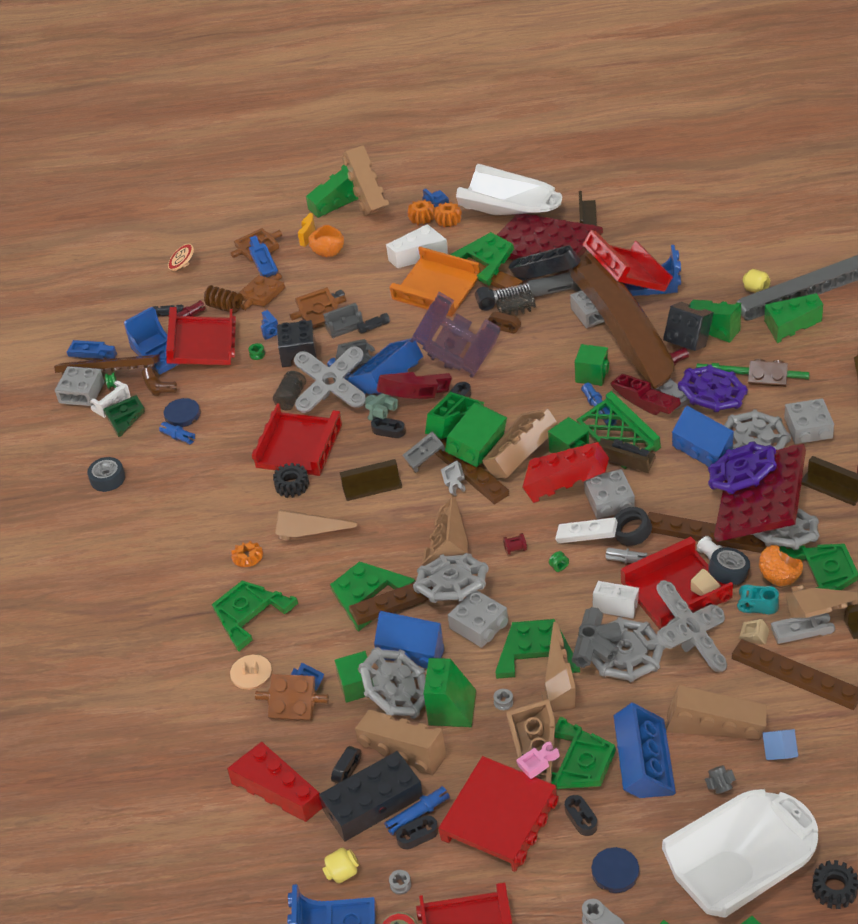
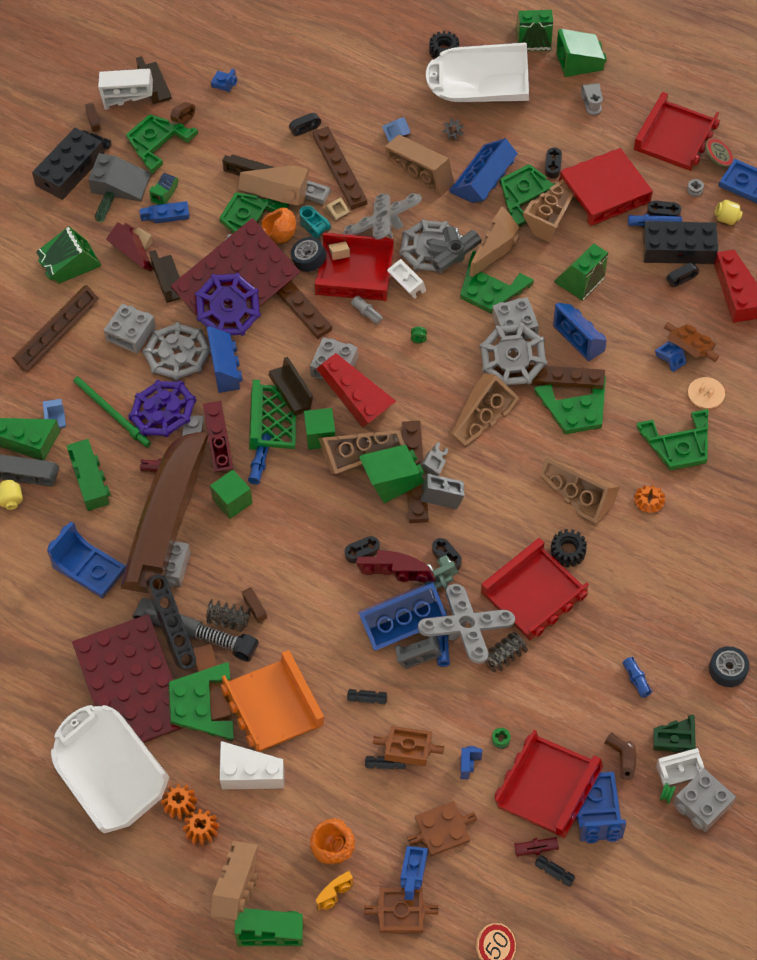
camera: 150 degrees left, 15 degrees up
(91, 349) = (667, 860): blue hinge -> none
(113, 363) = (663, 813): reddish brown plate -> none
(181, 412) = (618, 703): dark blue tile -> none
(222, 299) = (490, 833): reddish brown piece -> none
(295, 338) = (462, 704): black piece -> none
(342, 320) = (394, 716): dark grey hinge -> none
(349, 676) = (636, 325): green head -> none
(370, 480) = (502, 505): dark brown panel -> none
(400, 675) = (614, 297): light grey plate -> none
(416, 744) = (634, 263): medium nougat wedge -> none
(436, 197) = (167, 845): blue bracket -> none
(447, 414) = (393, 510): green wedge -> none
(454, 337) = (347, 588): clear purple piece -> none
(503, 705) = (541, 257): light grey bush -> none
(514, 543) = (437, 369): dark red bush -> none
(537, 761) = (563, 187): bright pink plate -> none
(586, 530) = (378, 342): white plate -> none
(587, 211) = (54, 698): dark brown panel -> none
(615, 870) = (559, 123): dark blue tile -> none
(628, 266) = (104, 563): red panel -> none
(630, 447) = (286, 380): black axle -> none
(637, 536) = (350, 314): black tyre -> none
(688, 326) = (126, 469): black piece -> none
(707, 547) = (306, 281): white bush -> none
(768, 373) = (103, 398): bracket -> none
(793, 343) = (55, 410): none -> medium blue panel

